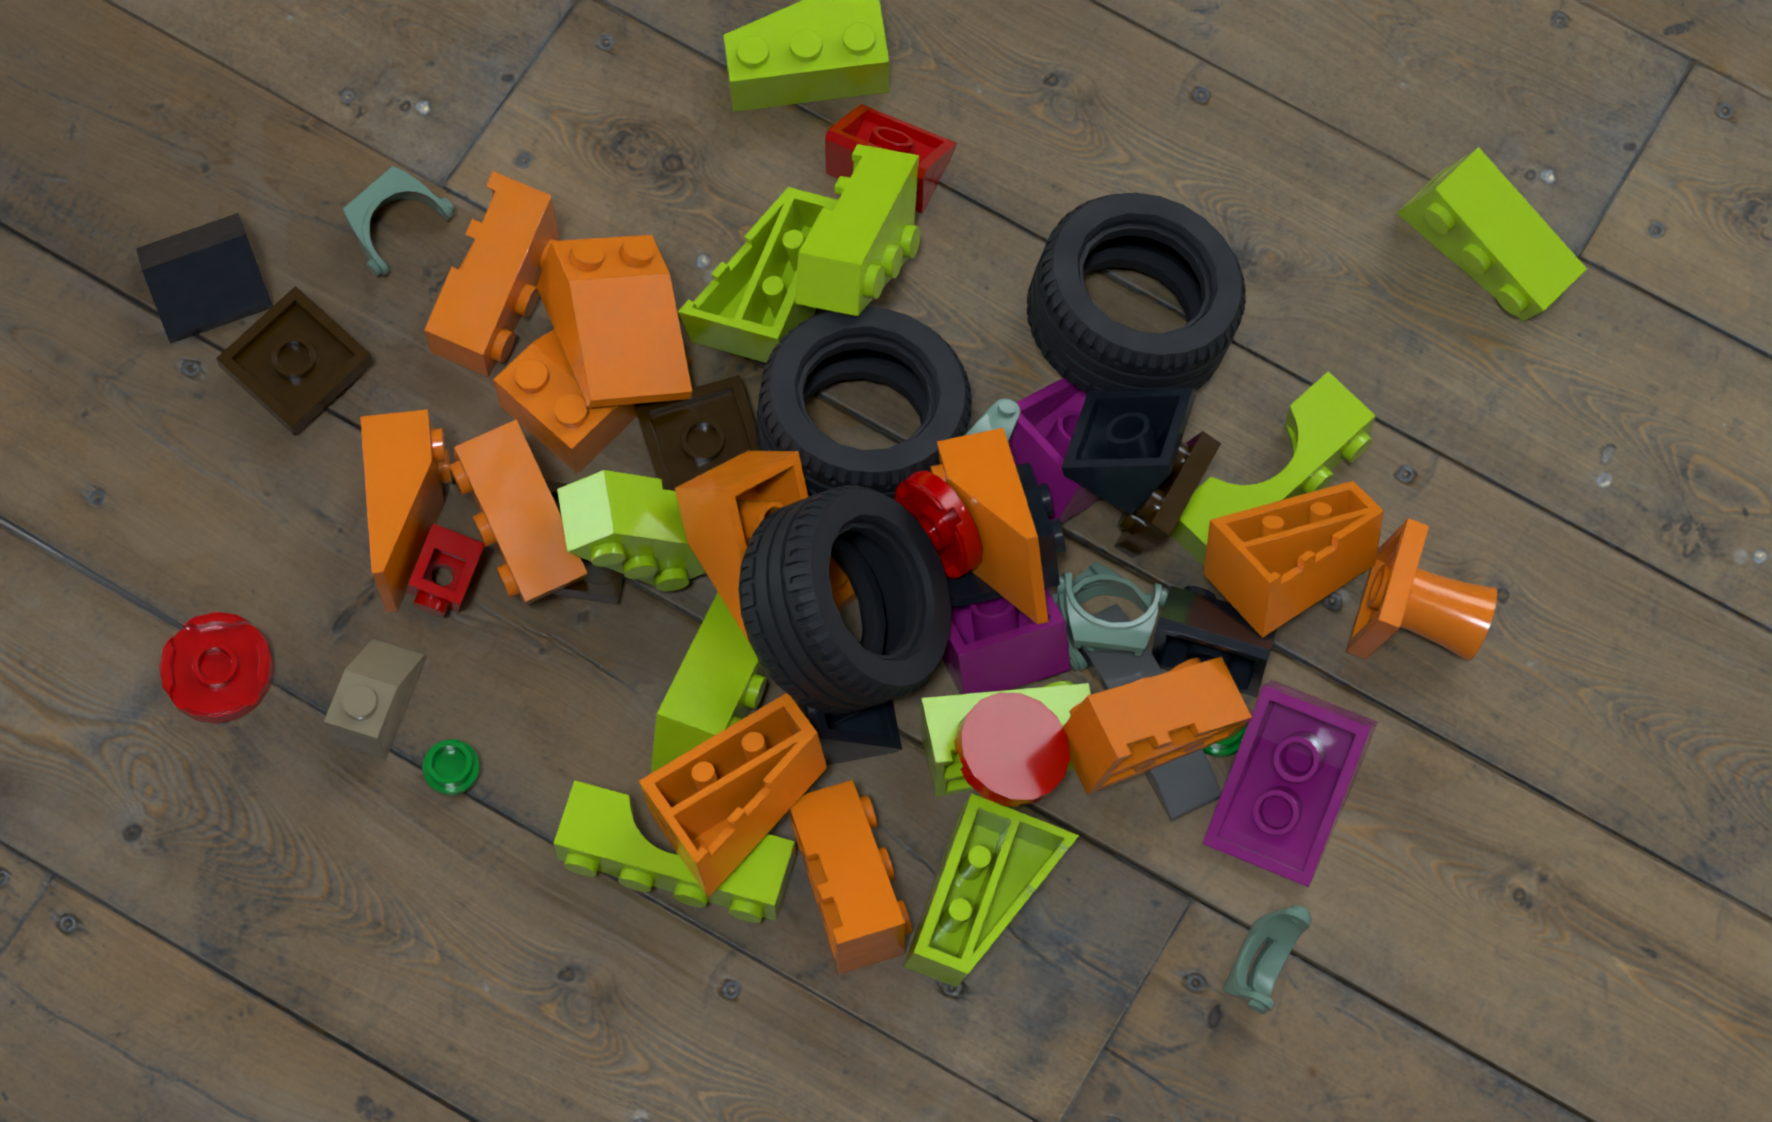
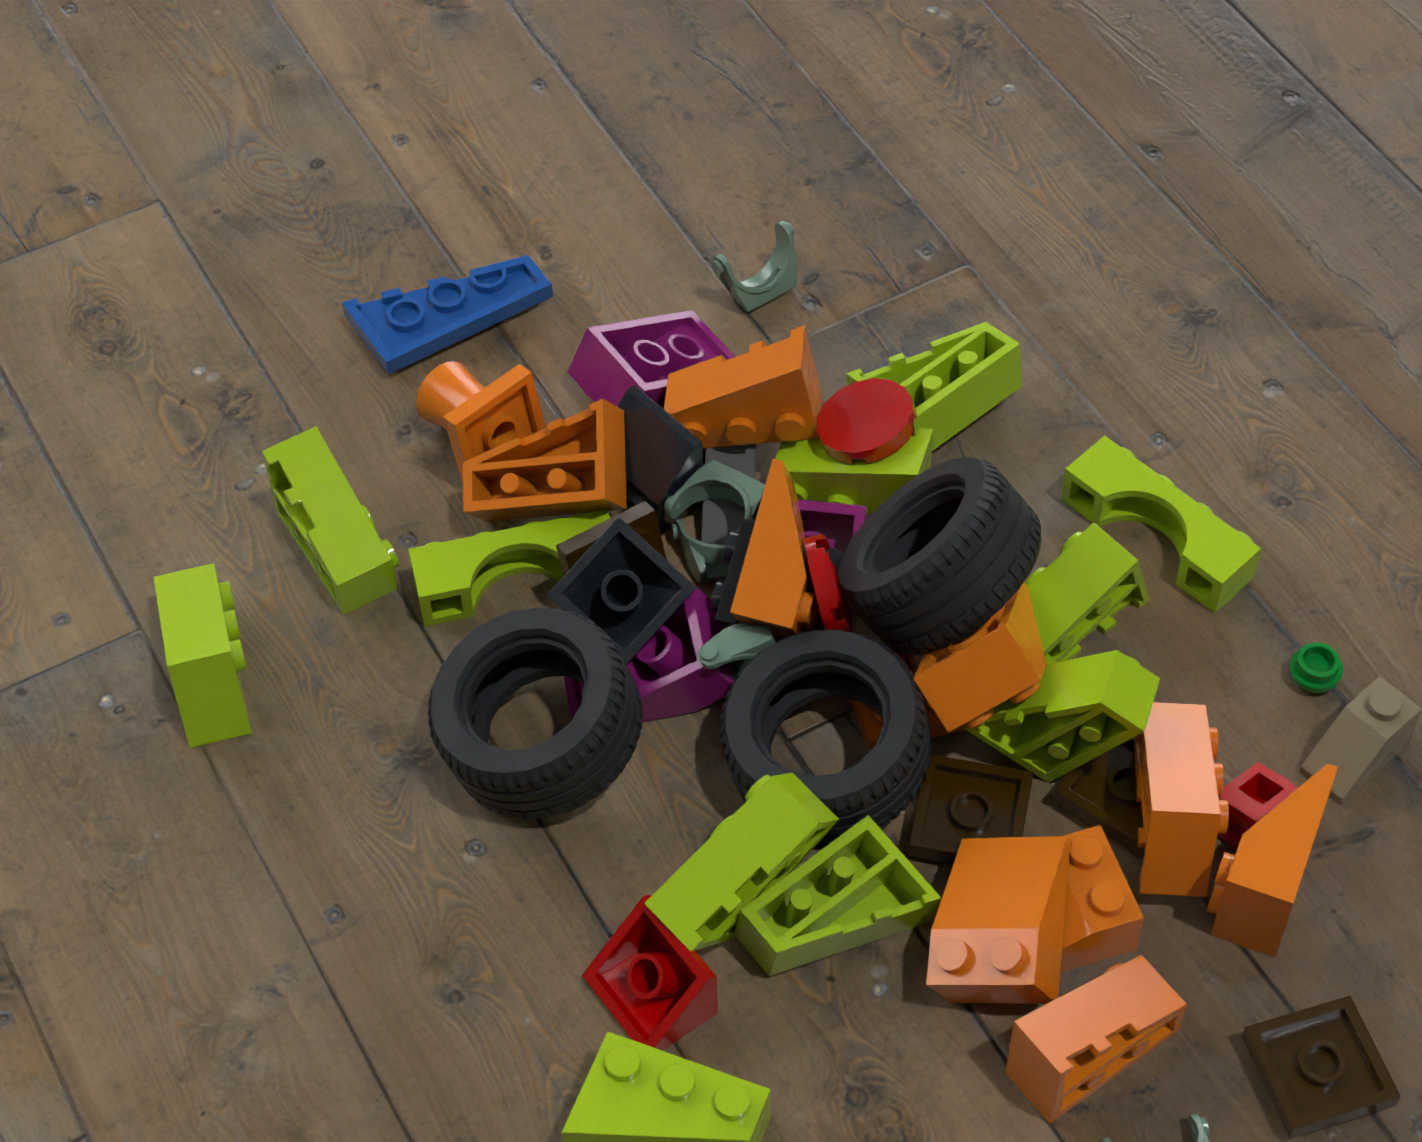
camera: 150 degrees left, 15 degrees down
(734, 788) = (1119, 487): orange wedge -> none
(849, 876) = (1037, 425): orange wedge -> none
(1471, 416) = (329, 521): none -> lime wedge
(1568, 734) = (425, 320): none -> blue wing

